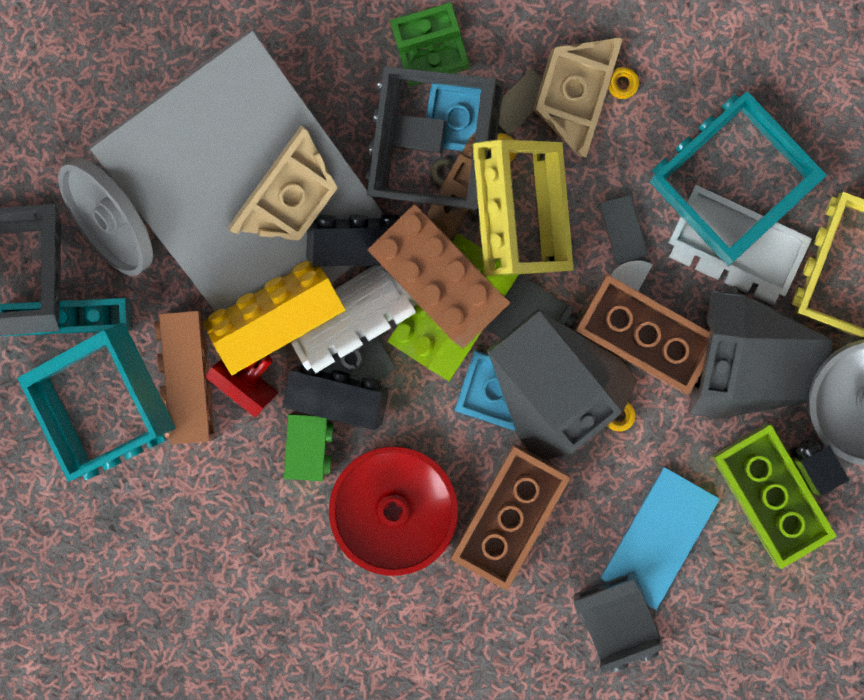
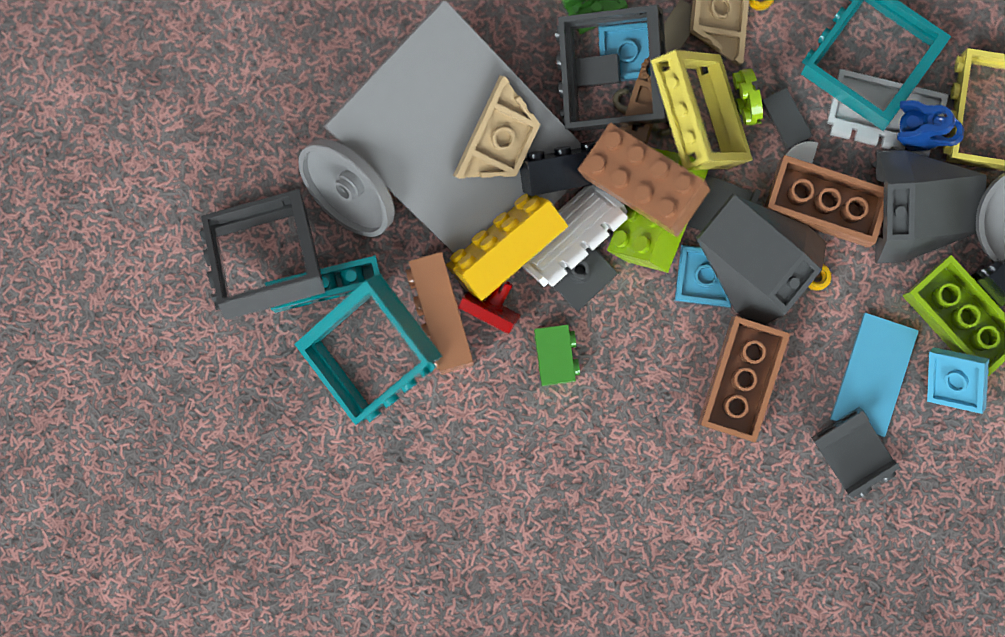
camera: 15 degrees left, 5 degrees down
(336, 397) = (572, 305): black brick -> none
(393, 511) = (641, 394): red dish -> none
(581, 200) = (750, 101): none -> lime plate
(748, 565) = (957, 380): none -> medium azure plate
(775, 275) = (923, 128): none -> blue piece

